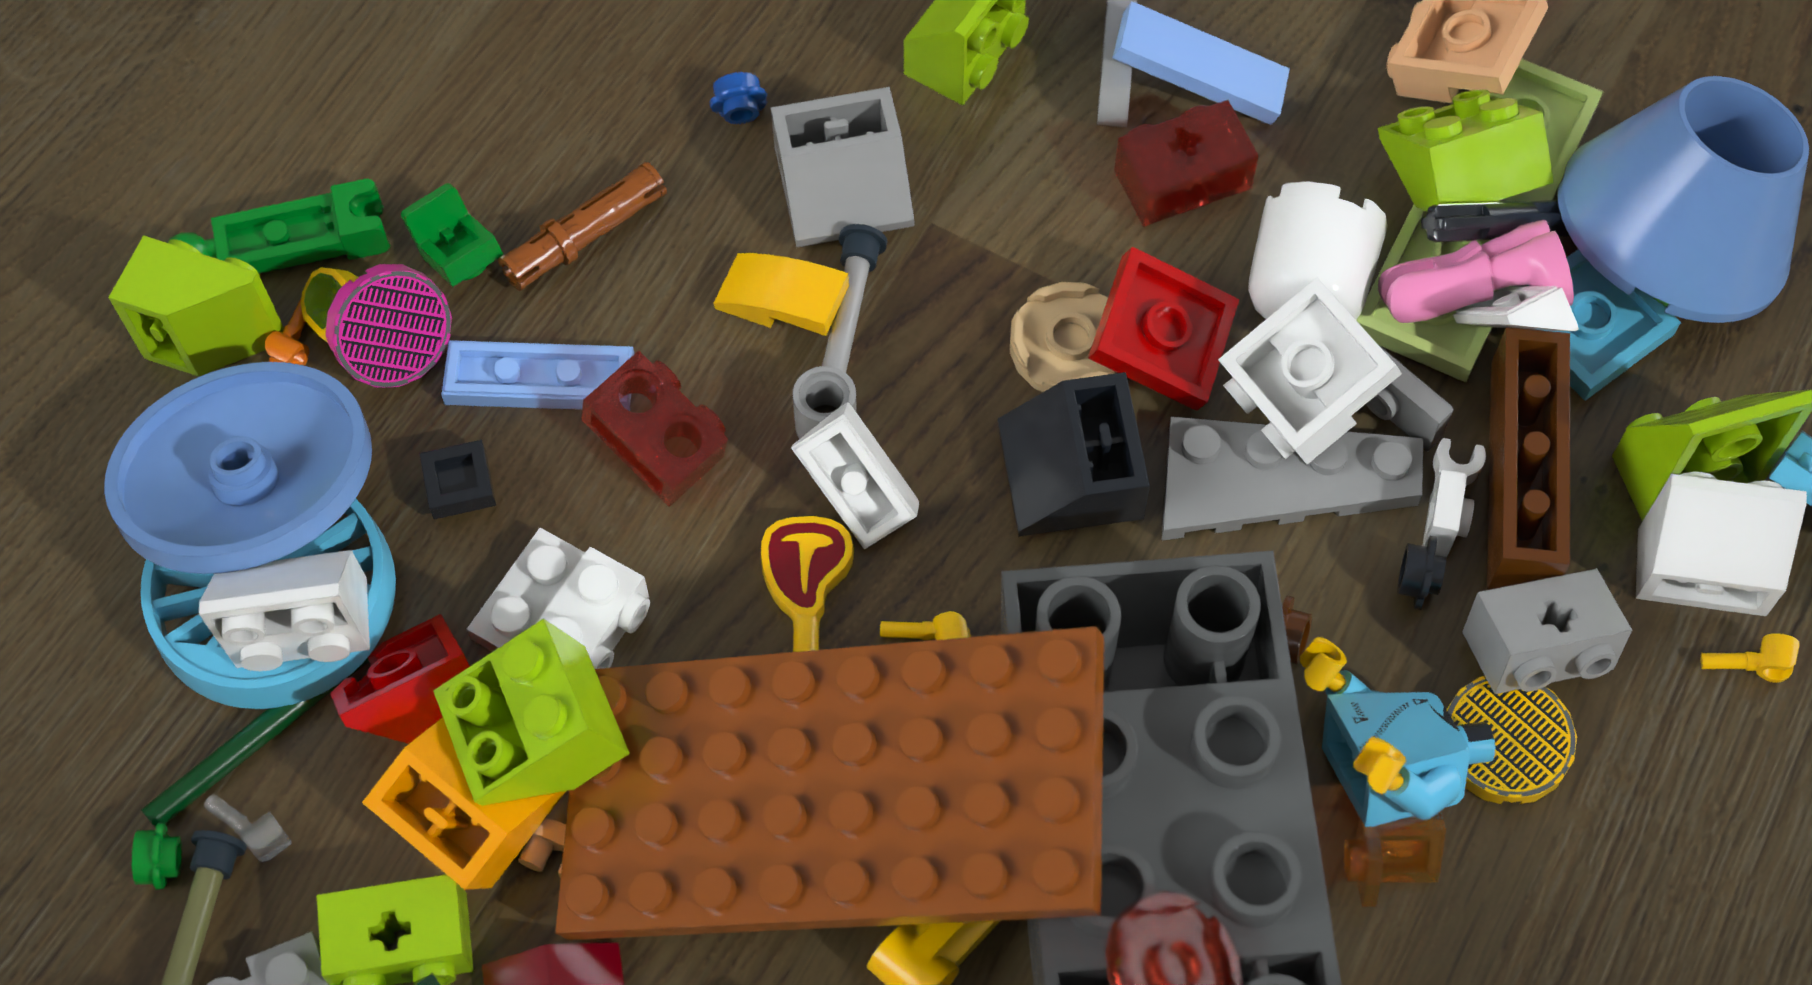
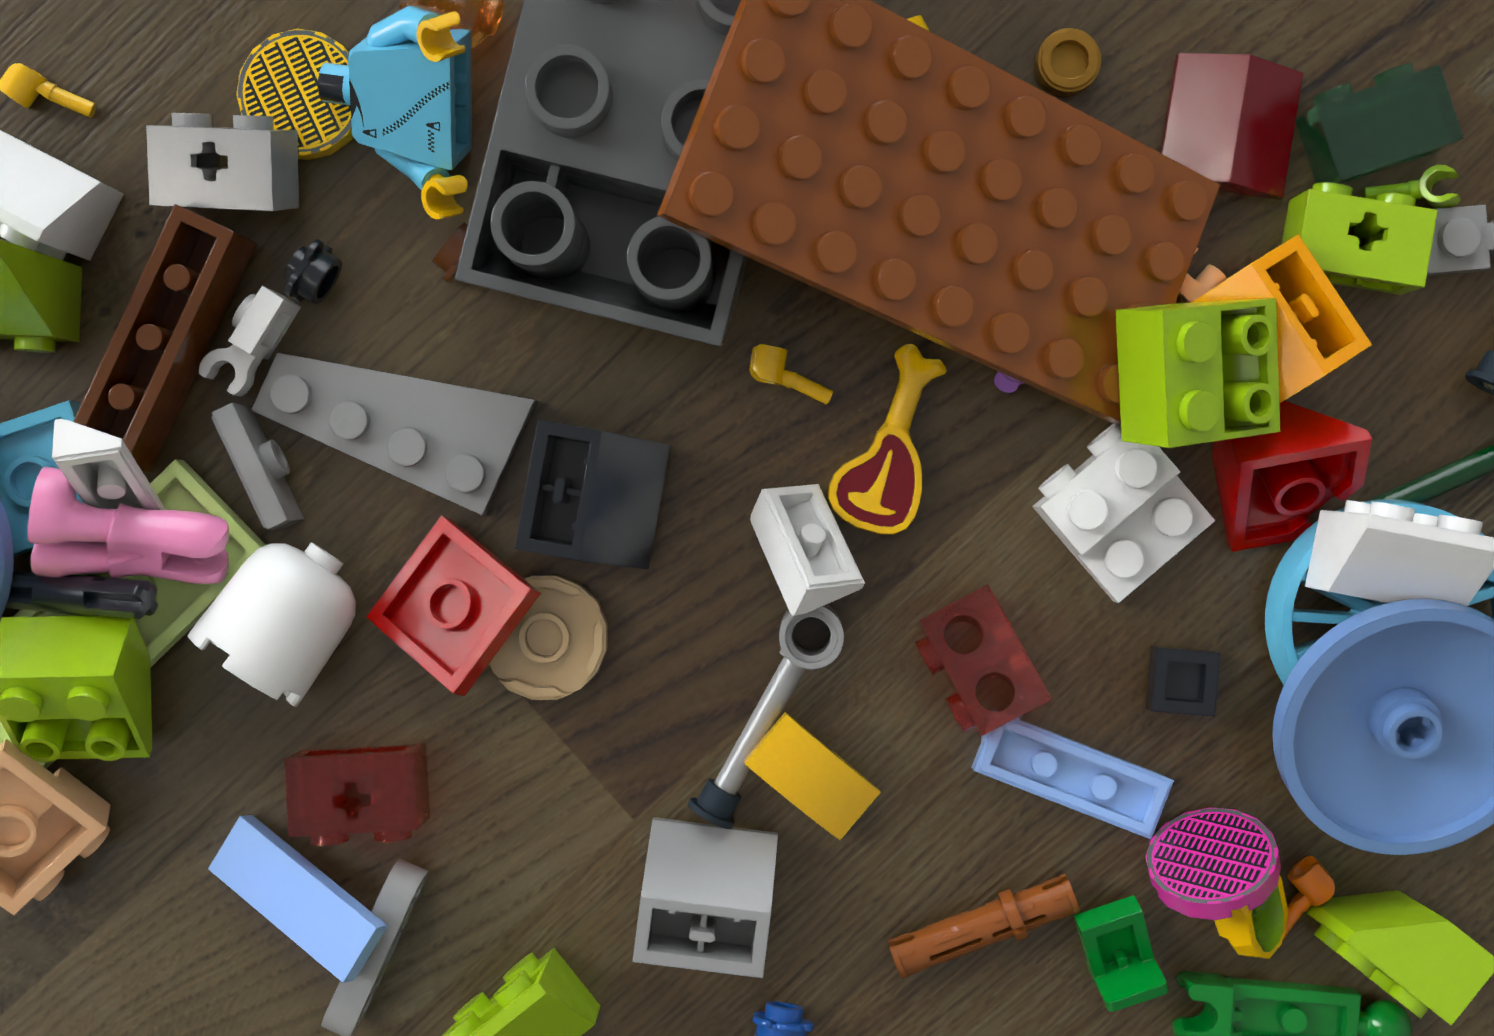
camera: 160 degrees left, 25 degrees up
(262, 837) = (1455, 381): clear hand -> none
(1307, 372) = (336, 486): white plate -> none

